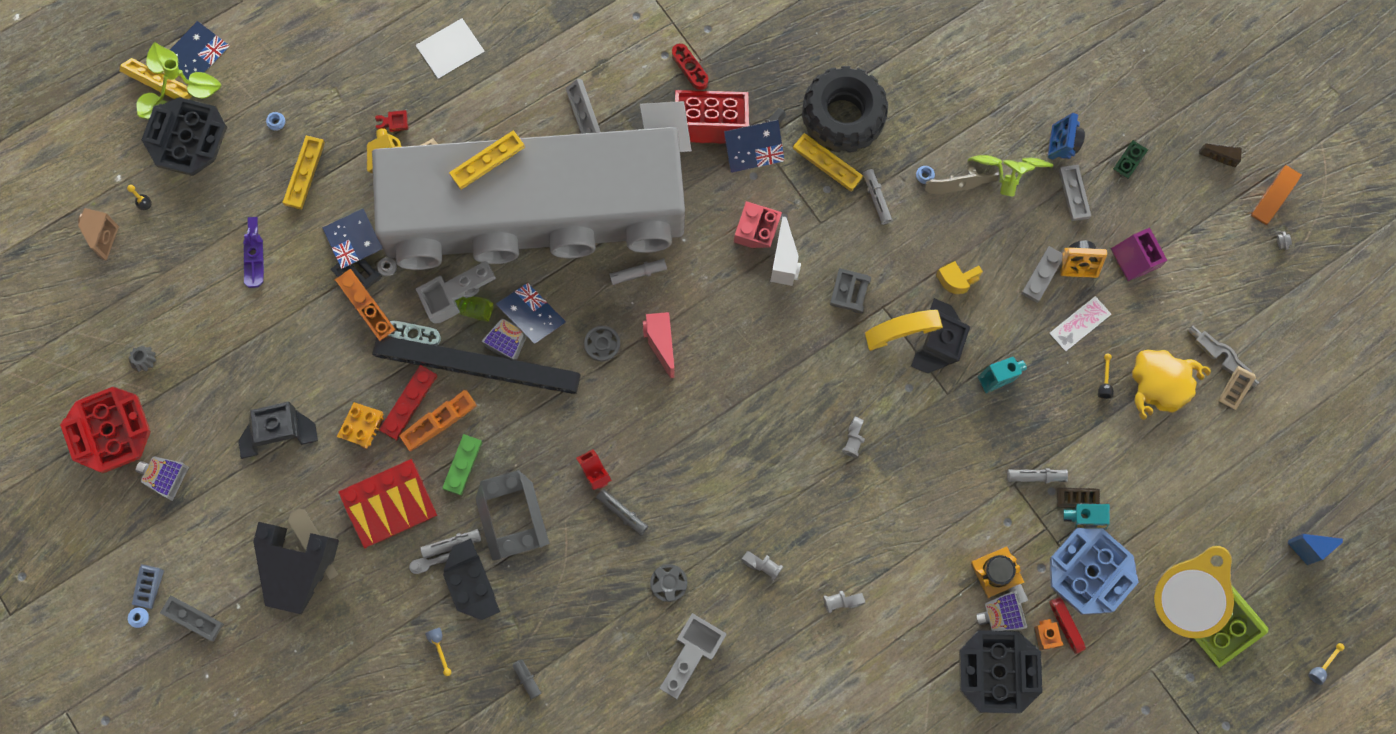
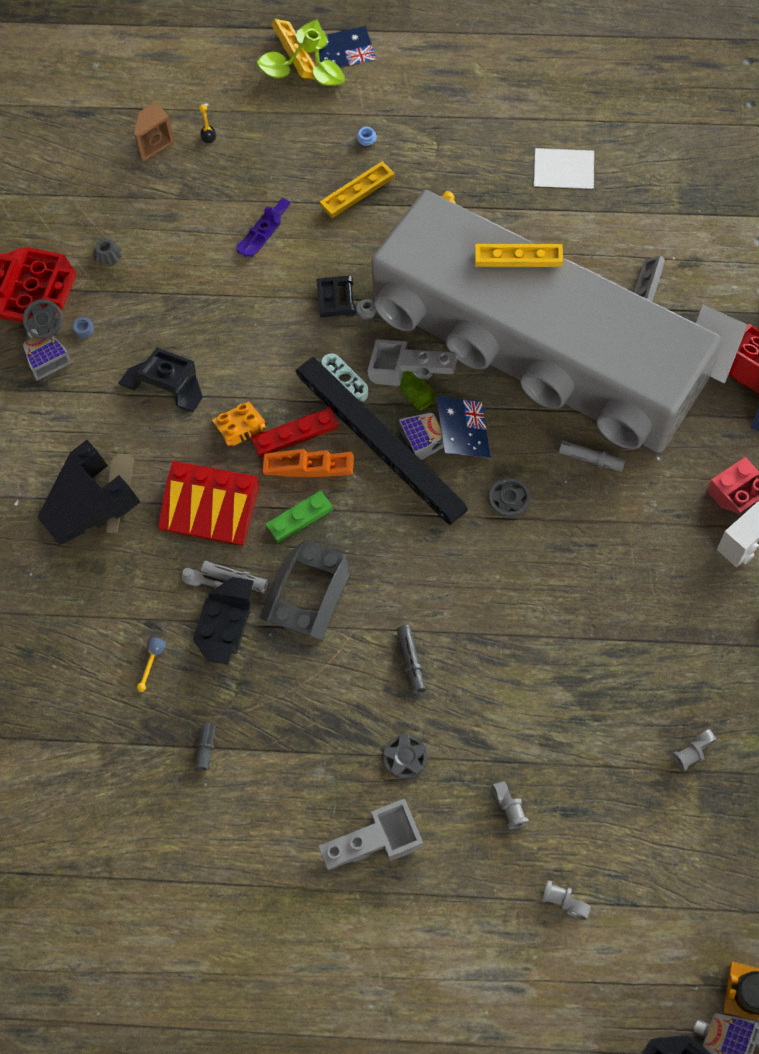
camera: 45 degrees right, 10 degrees down
(143, 451) = (43, 319): none -> dark grey wheel
(170, 126) = (280, 99): black piece -> none
(174, 433) = (83, 327): none -> sand blue tile
(352, 238) = (352, 266): dark blue sticker -> none
(365, 305) = (321, 322): orange slope -> none
(395, 121) = (468, 196): red plate -> none
(593, 470) = (413, 601): red brick -> none
(658, 331) = (570, 519): coral slope -> none

